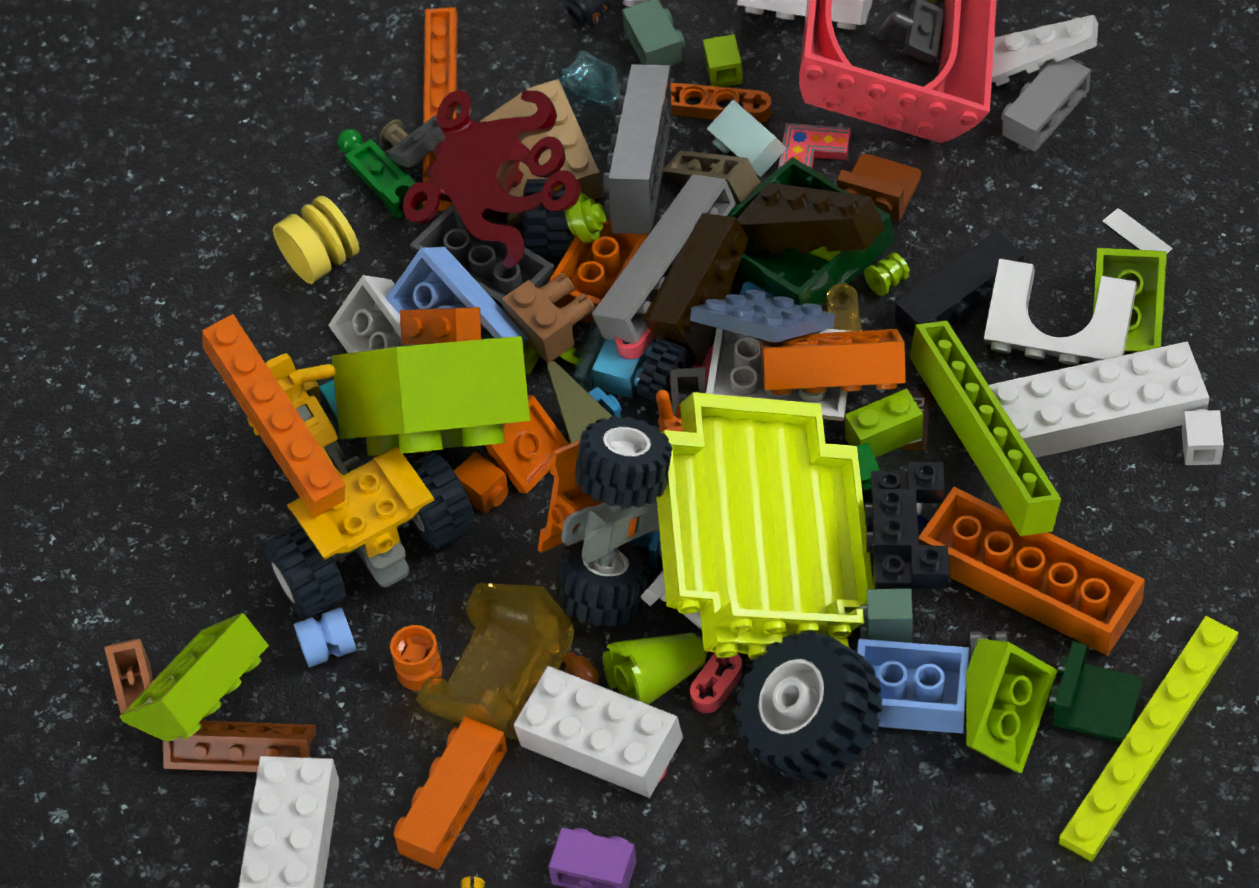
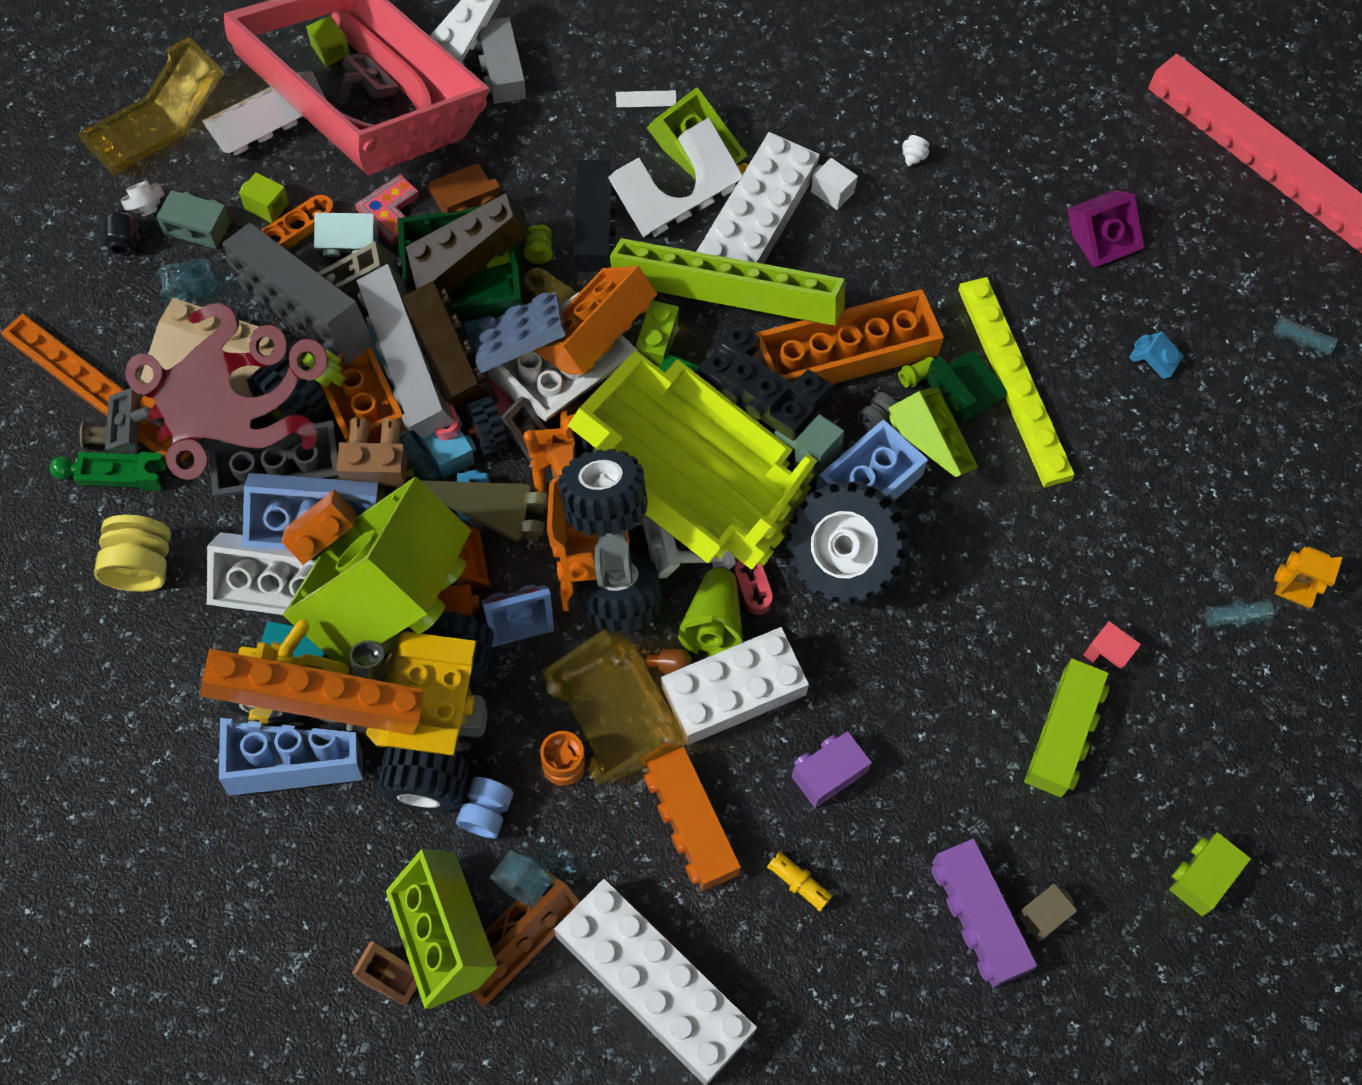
camera: 60 degrees left, 10 degrees up
(240, 470) = (285, 757): none -> light blue wedge
(286, 706) = (521, 878): none -> clear light blue brick
(346, 444) = (368, 660): none -> dark grey wheel
(506, 525) = (519, 614): none -> medium blue slope
(1058, 645) = (913, 374): none -> lime pin

